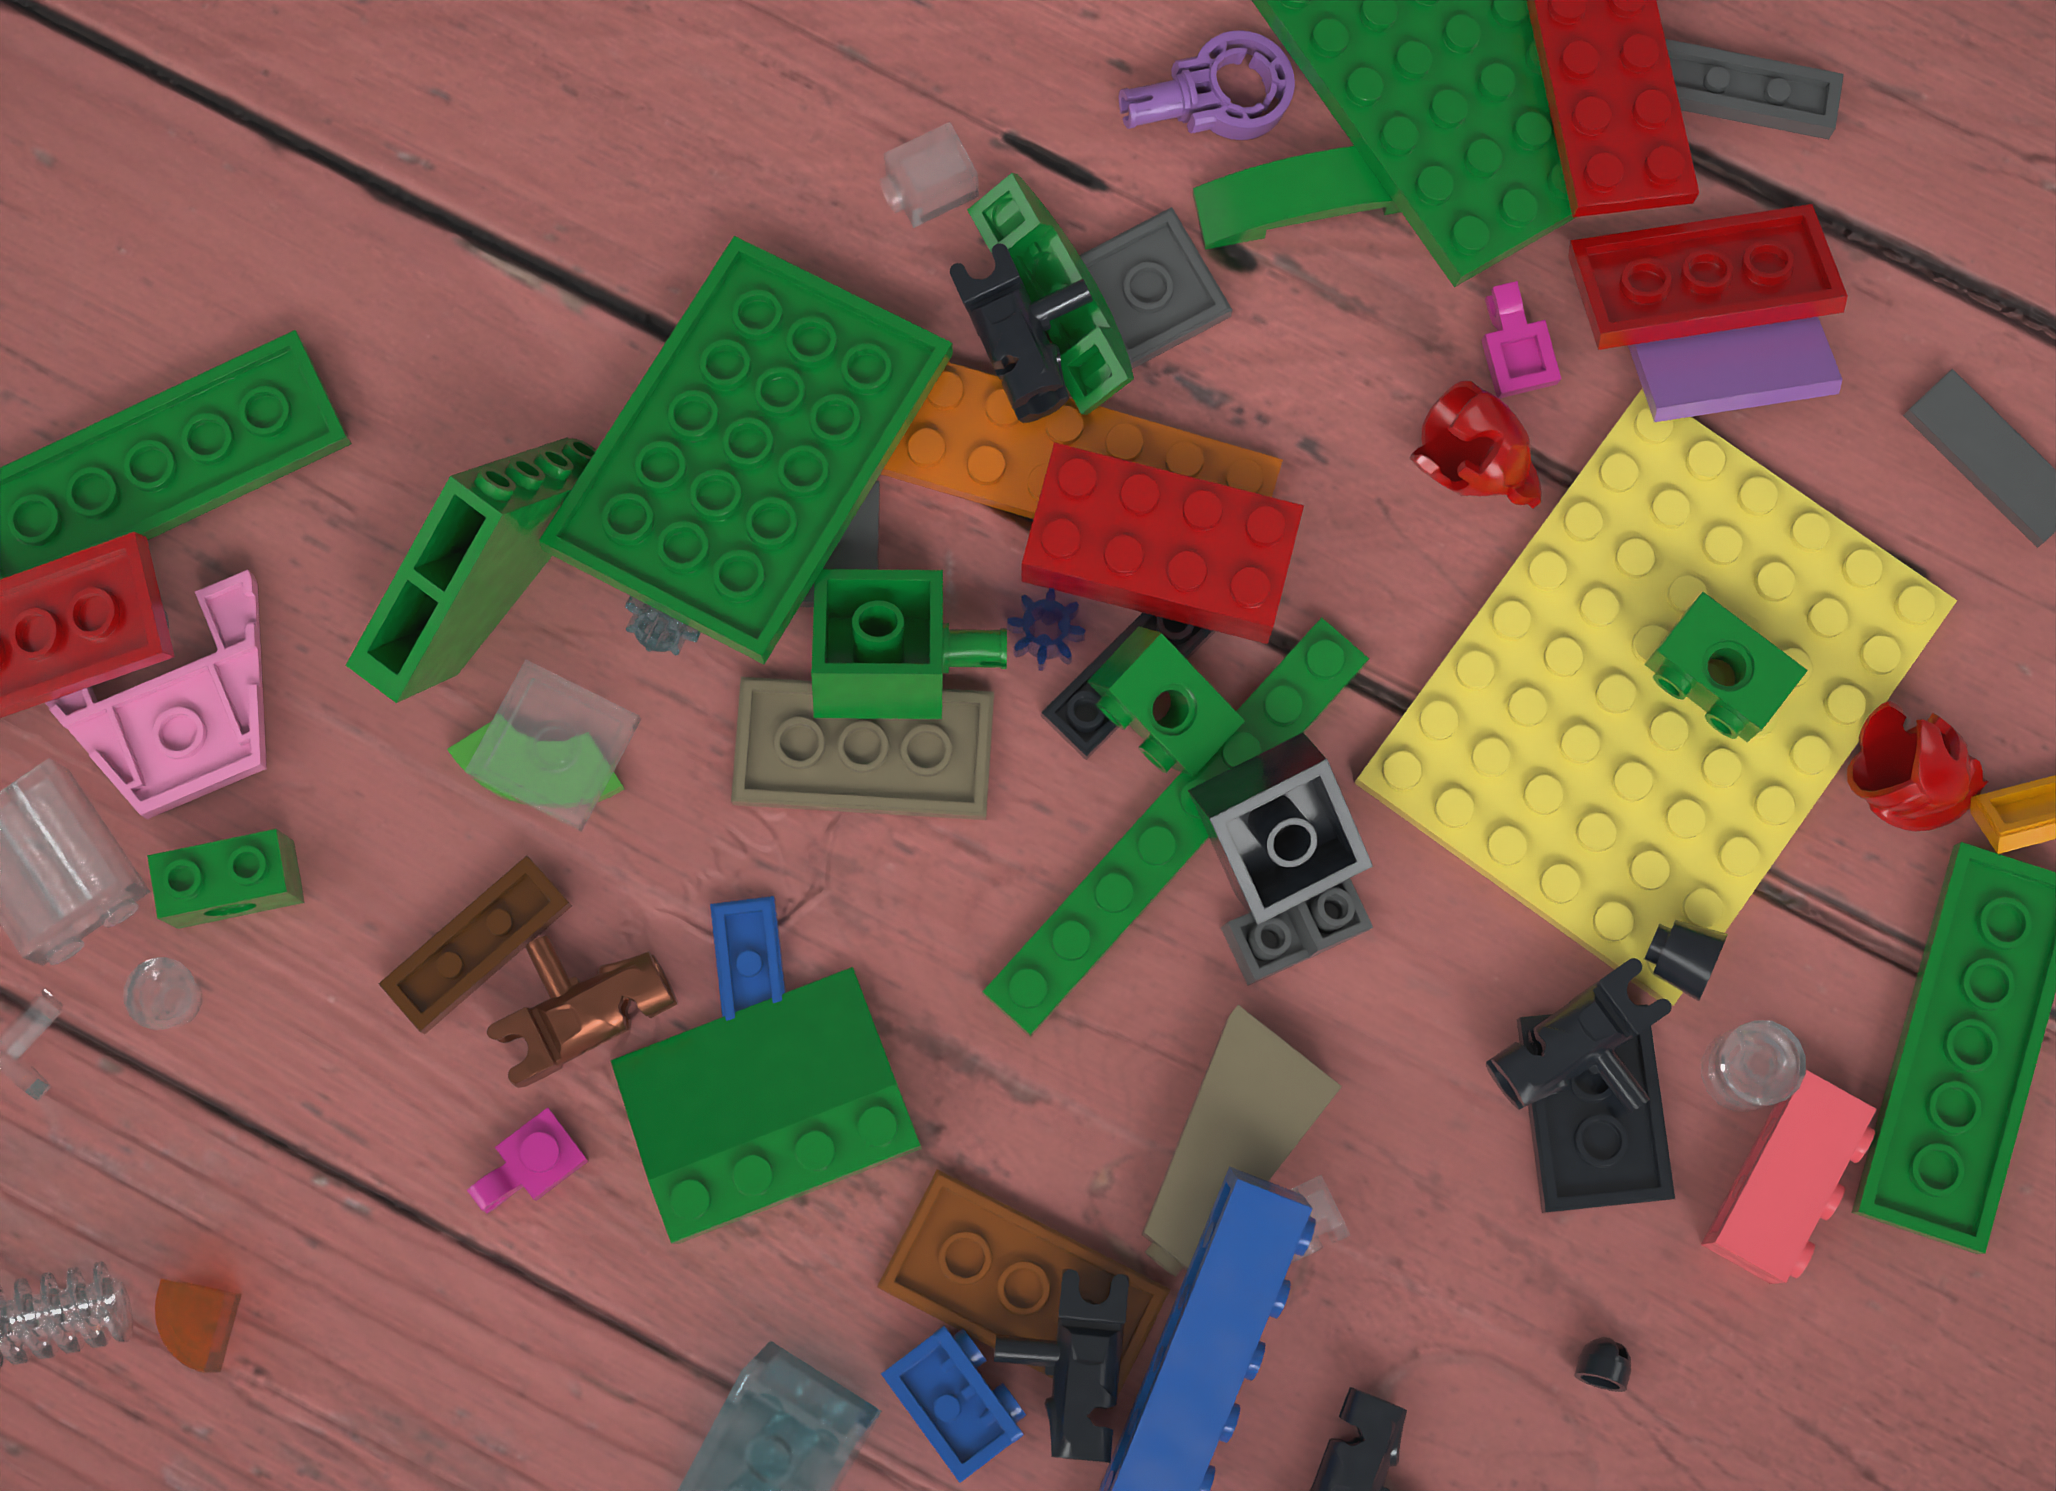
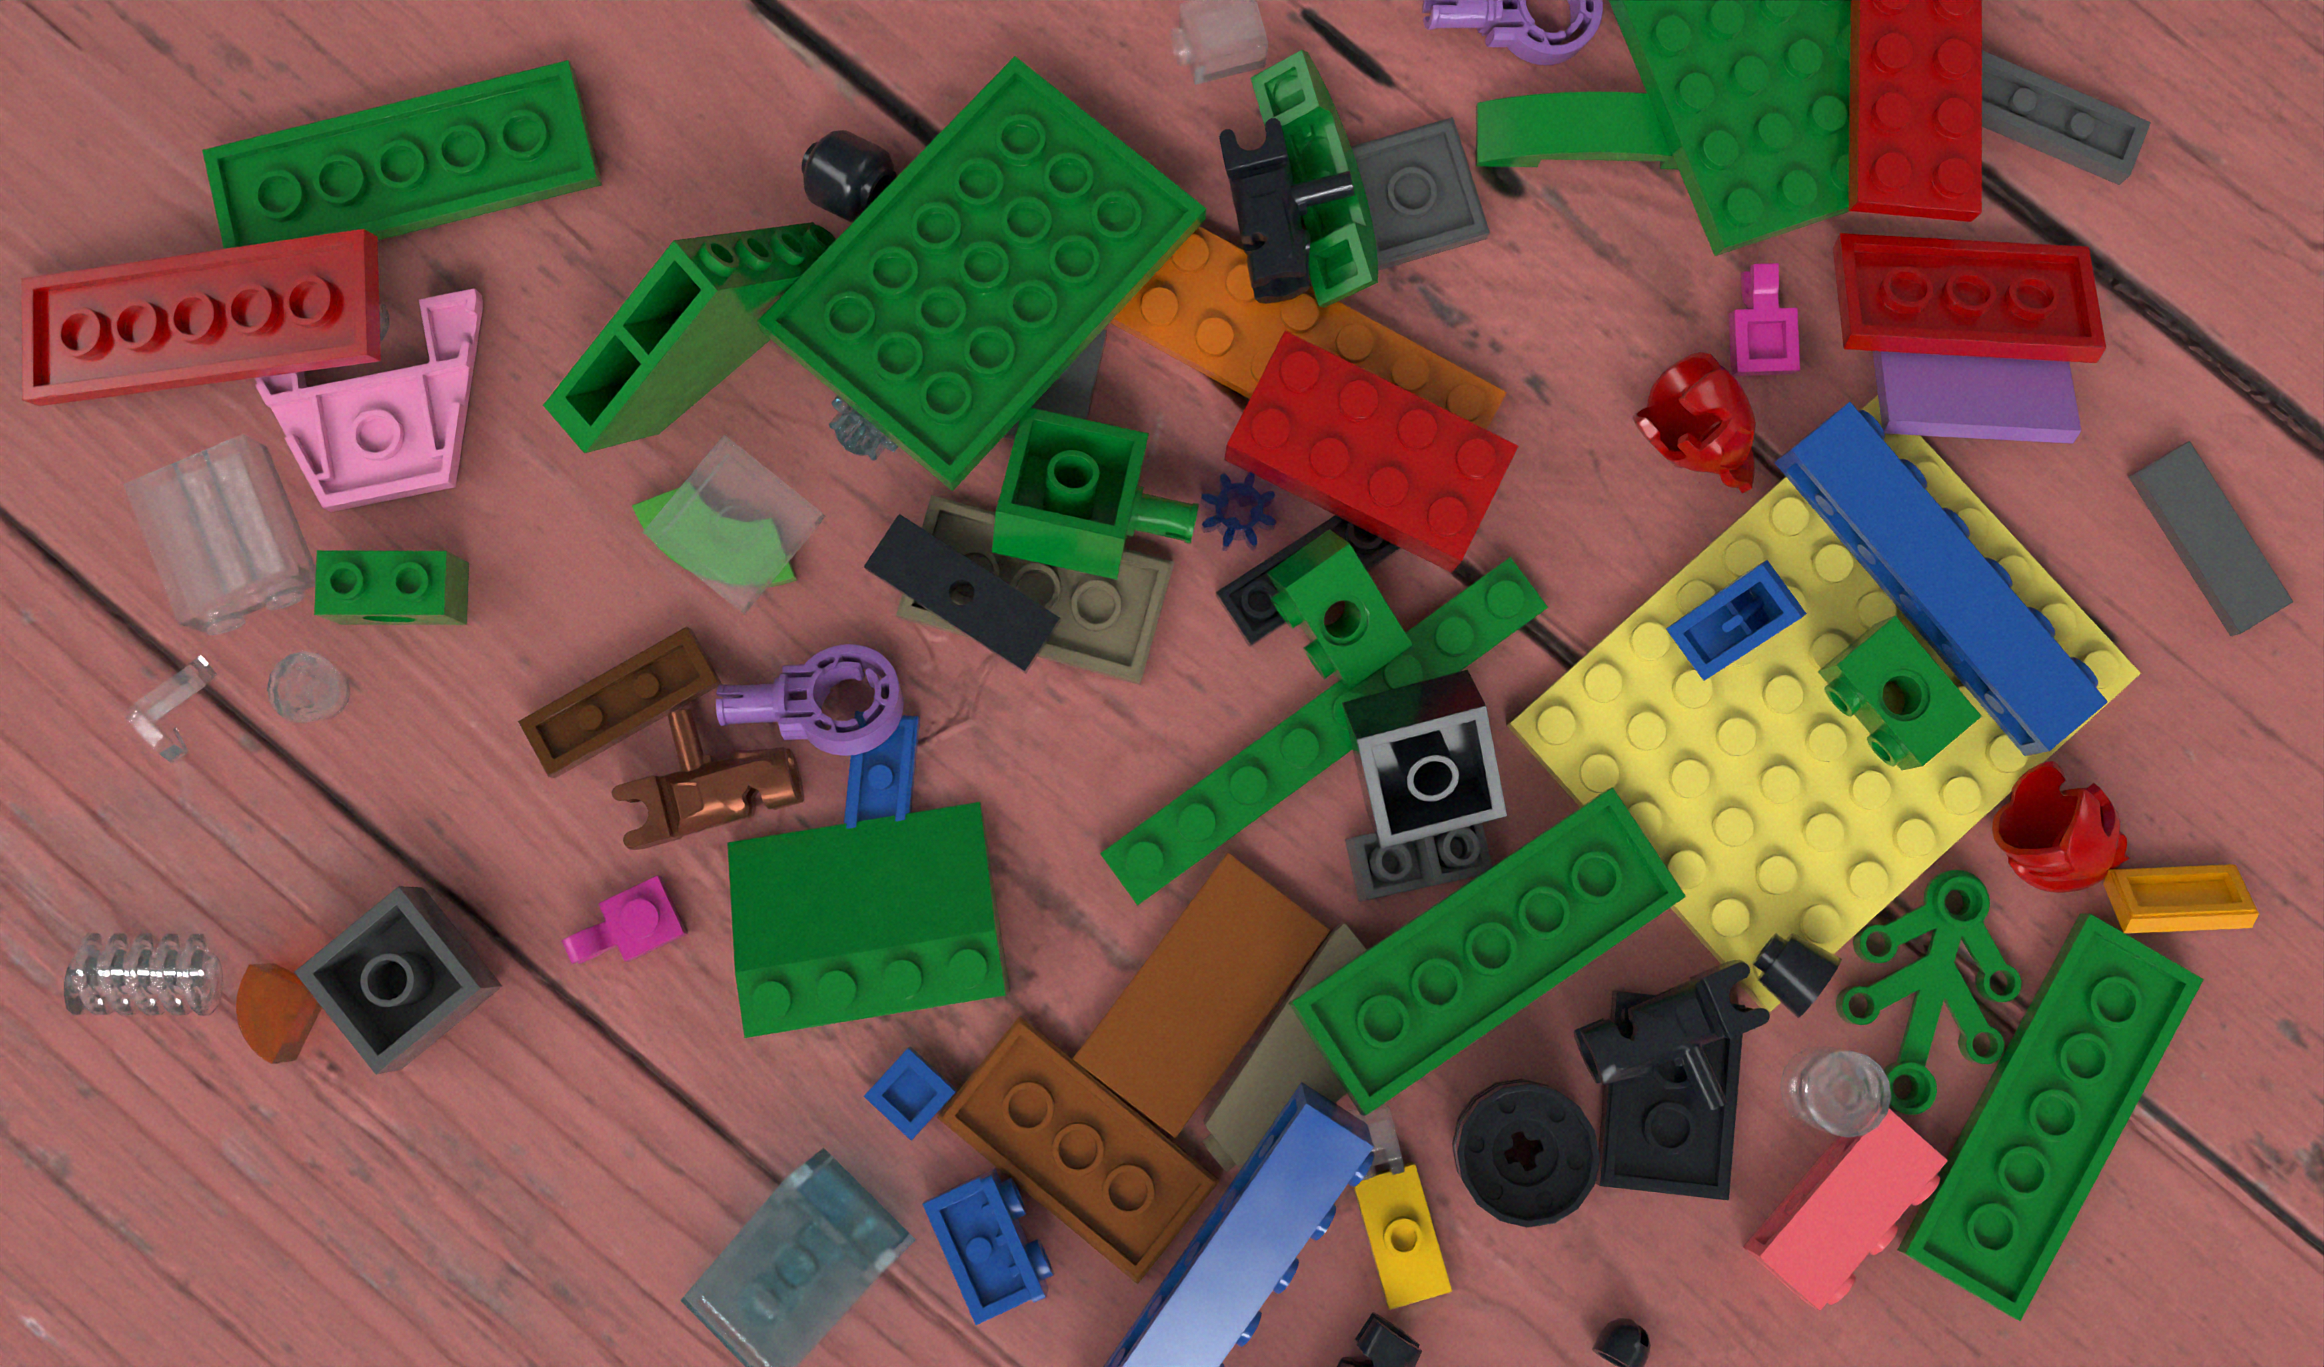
camera: 10 degrees right, 5 degrees up
(312, 1262) = (398, 979): none -> dark grey brick
(592, 383) = (845, 173): none -> black head
(653, 895) = (798, 698): none -> medium lavender pin
(757, 748) = (930, 573): none -> black tile
(845, 1268) = (910, 1093): none -> blue plate
(1082, 1367) = (1117, 1240): black piece -> none
(1112, 1109) = (1201, 995): none -> dark orange tile
(1362, 1304) = (1402, 1237): none -> yellow plate
(1381, 1001) = (1486, 951): none -> green plate
(1468, 1150) = (1561, 1164): none -> black wheel
(1551, 629) = (1736, 620): none -> blue slope
(1741, 550) = (1942, 581): none -> blue brick
(1827, 941) = (1934, 981): none -> green plant

